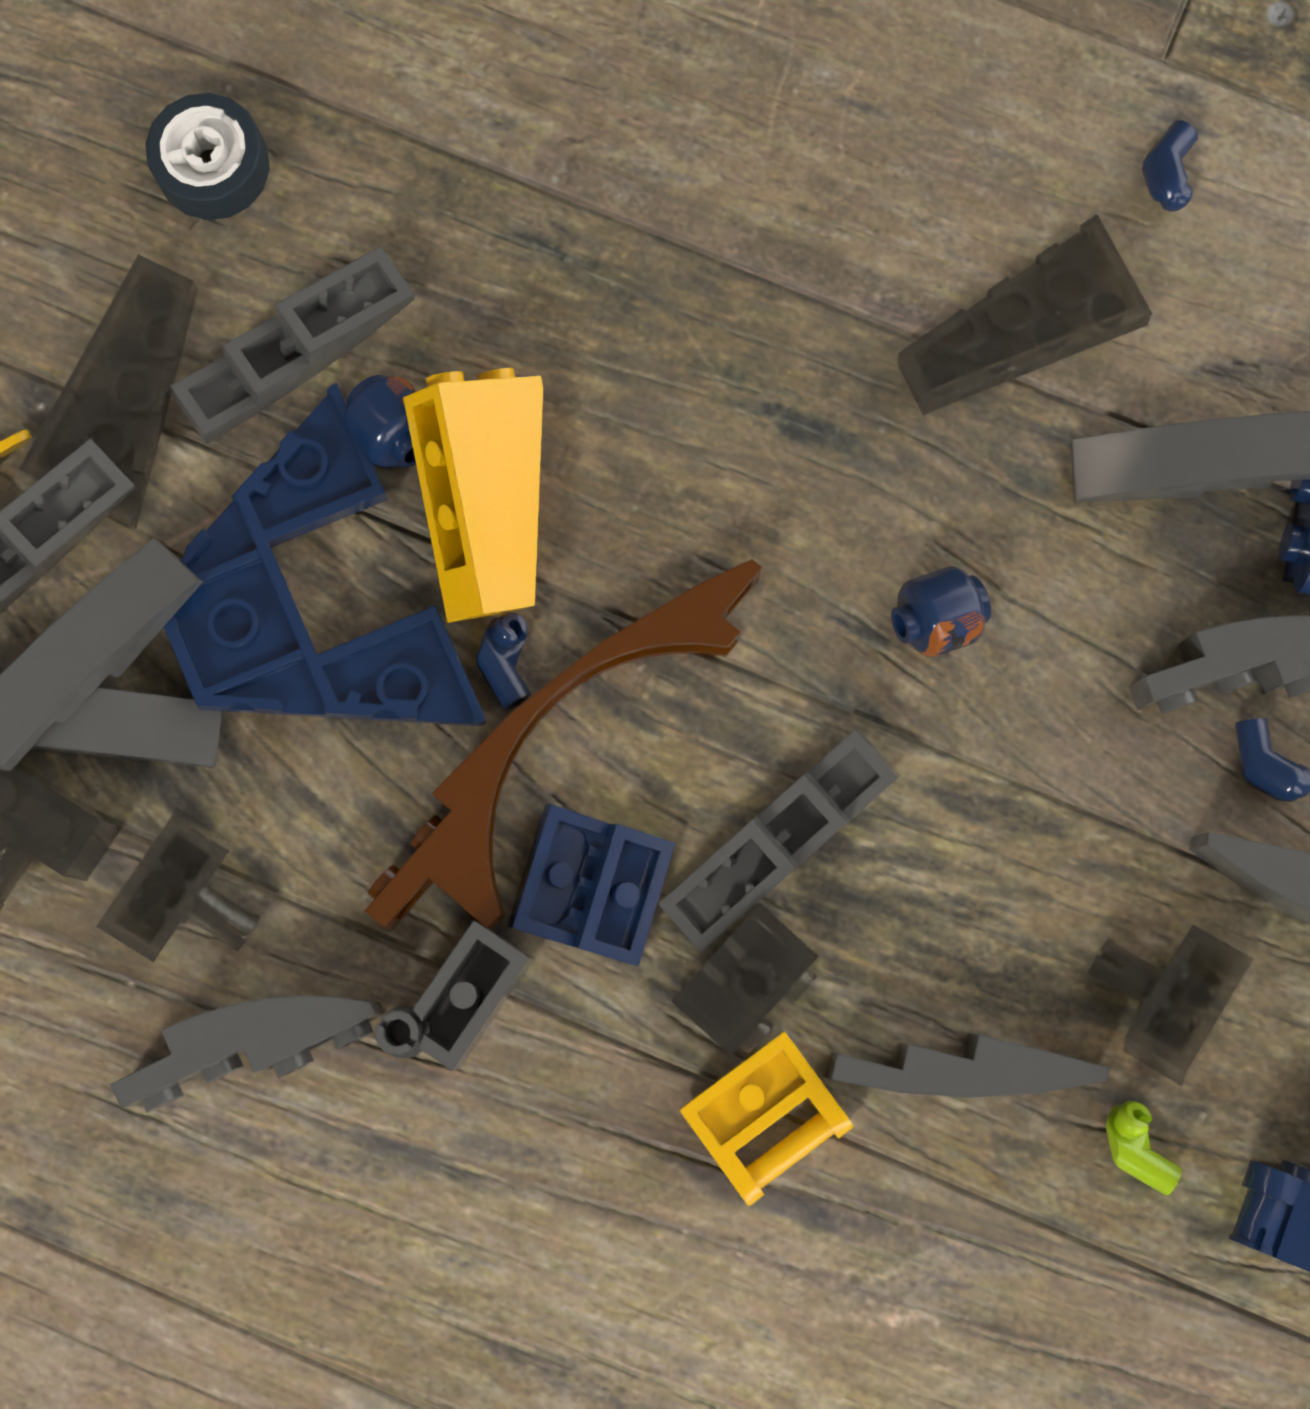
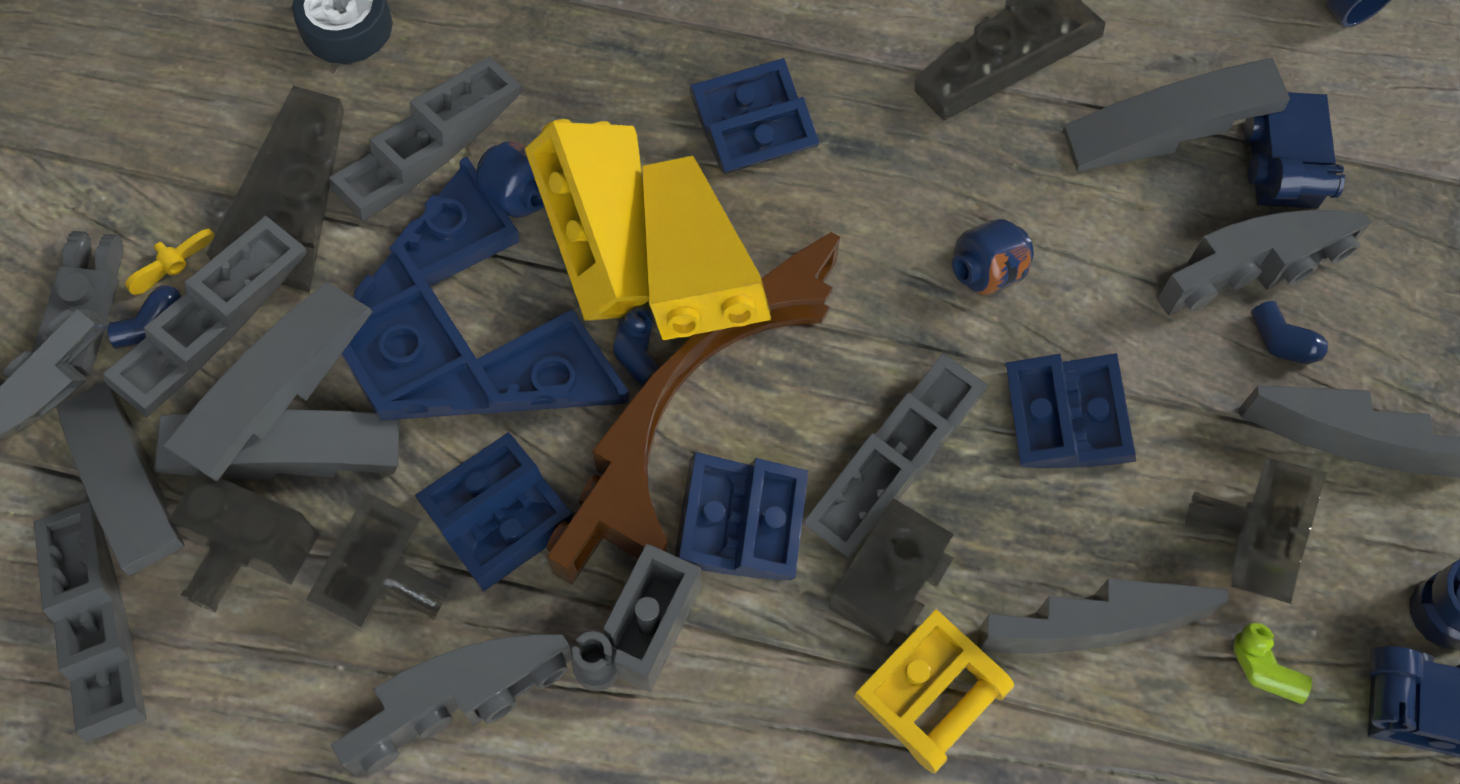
camera: 10 degrees left, 15 degrees down
(318, 833) = (495, 510): none -> dark blue slope
(582, 569) = (694, 256): none -> yellow slope
(692, 373) = (753, 116): none -> dark blue slope
(990, 816) = (1070, 412): none -> dark blue slope

